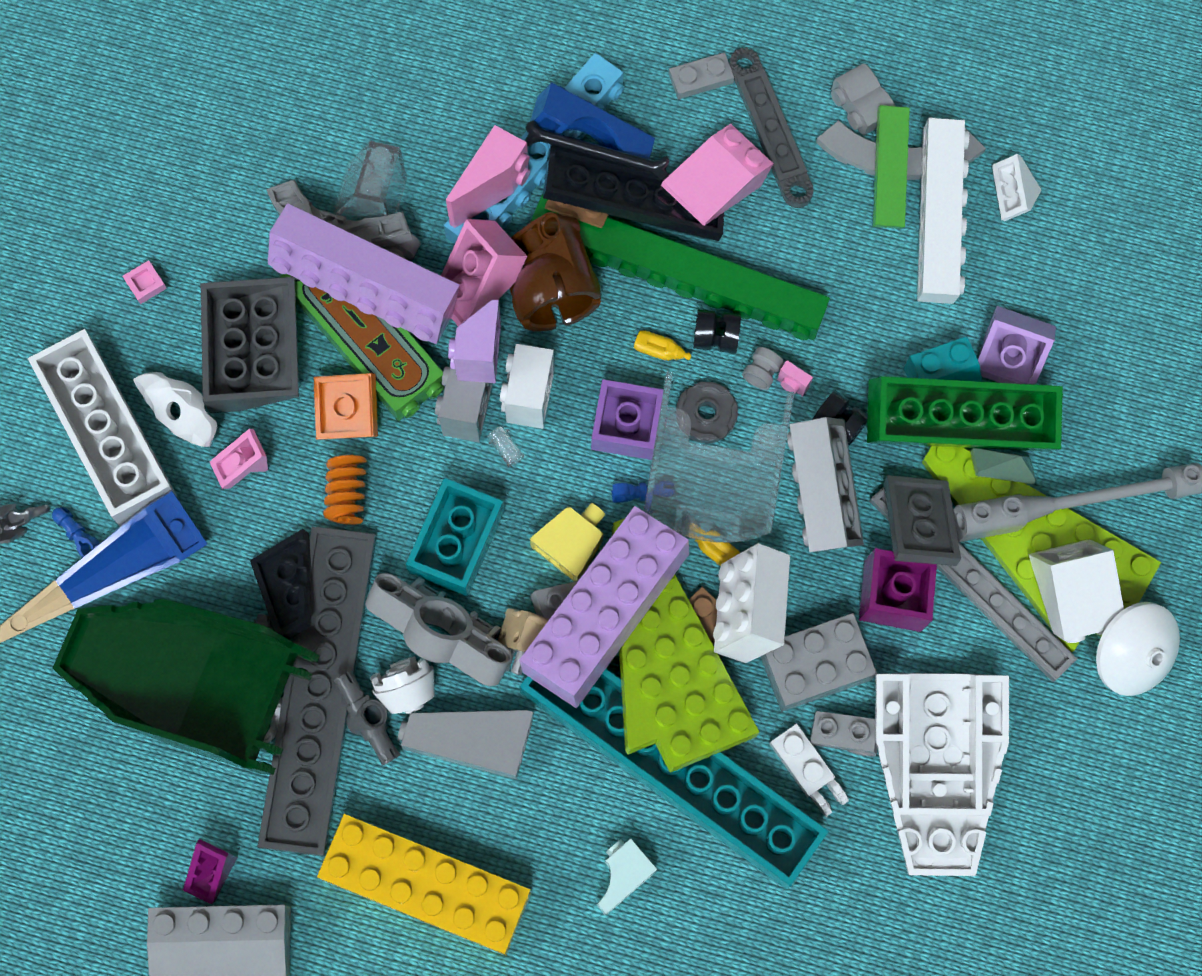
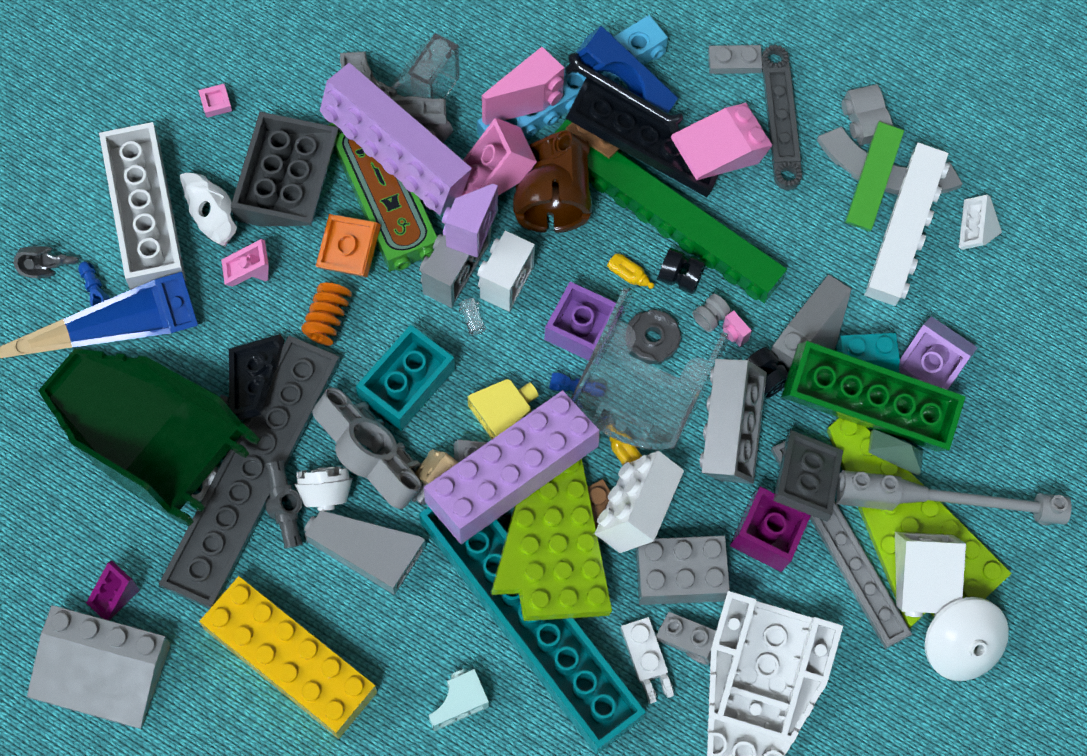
camera: 15 degrees right, 5 degrees down
(876, 349) = (816, 321): none -> light grey wedge

